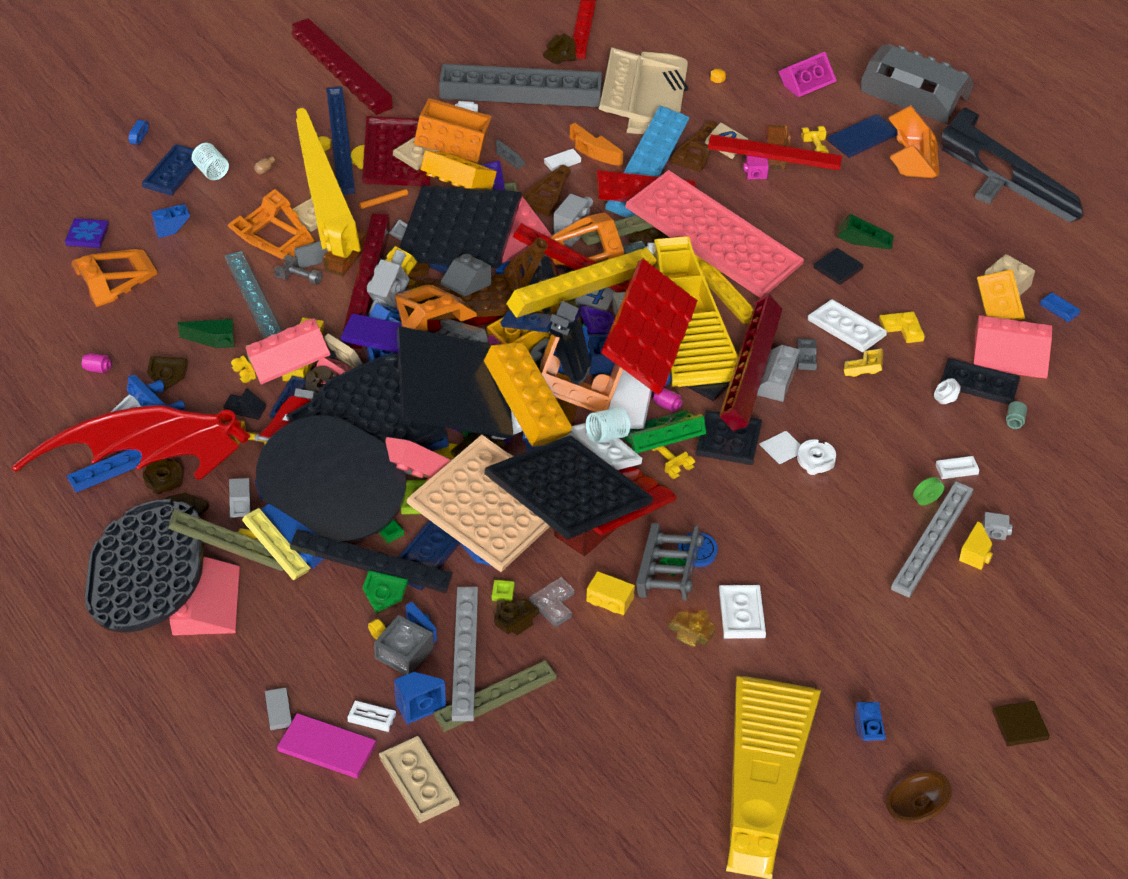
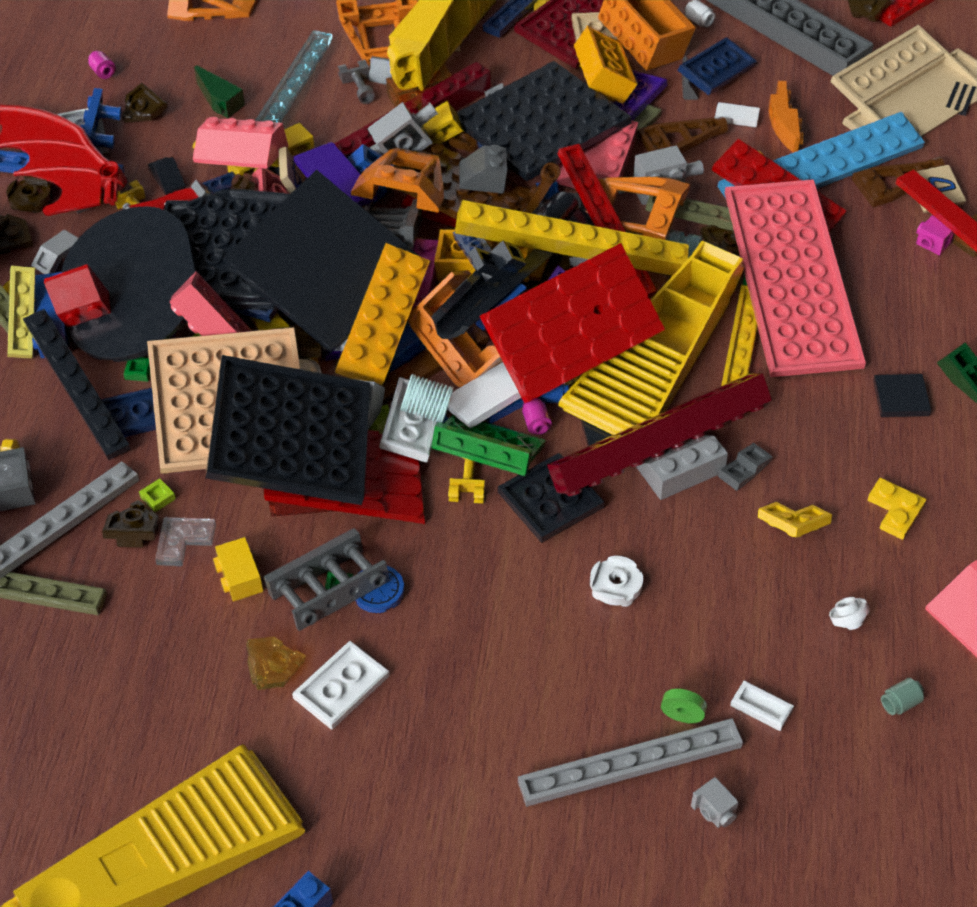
camera: 45 degrees right, 5 degrees up
(316, 505) = (78, 295): none -> slope
(382, 199) = (518, 57): orange bar -> none
(384, 590) = (59, 418): green plate -> none
(416, 616) = (49, 471): blue plate -> none
(520, 135) = (717, 66): none -> dark blue tile
(781, 447) = (596, 545): white sticker -> none
(847, 325) = (828, 465): white tile -> none
(977, 548) = (664, 809): yellow slope -> none
(982, 381) = (913, 630): black tile -> none

